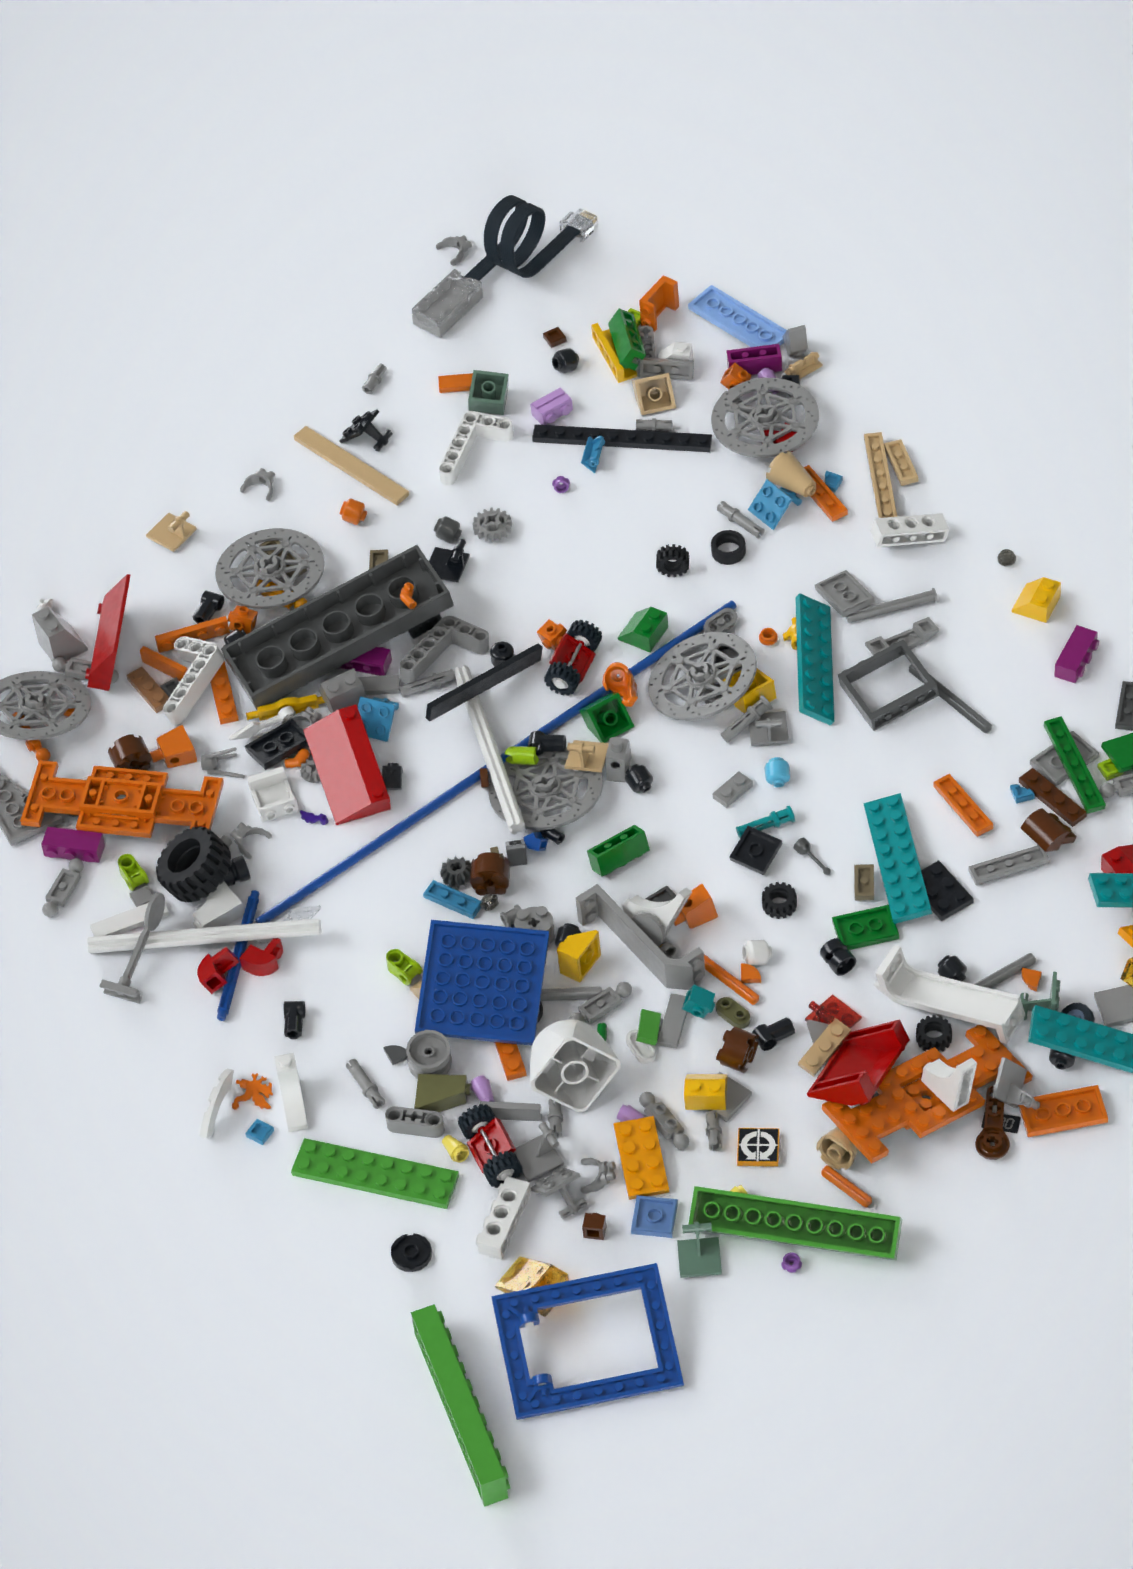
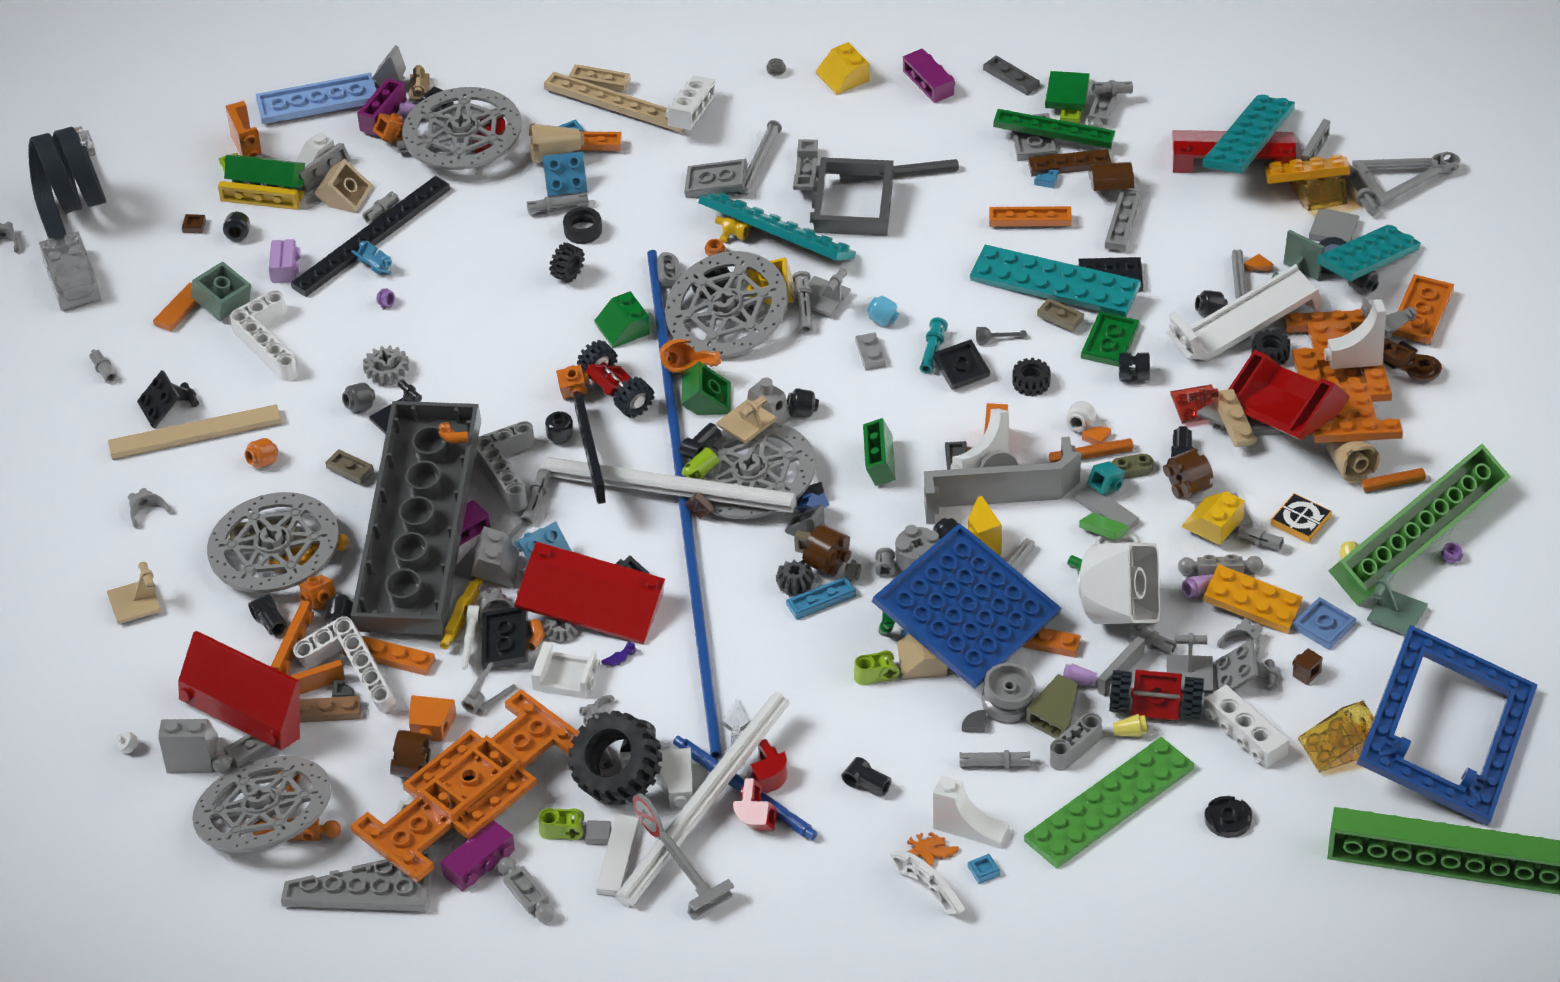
camera: 60 degrees left, 5 degrees down
(602, 1003) = (1047, 549): light grey plate -> none

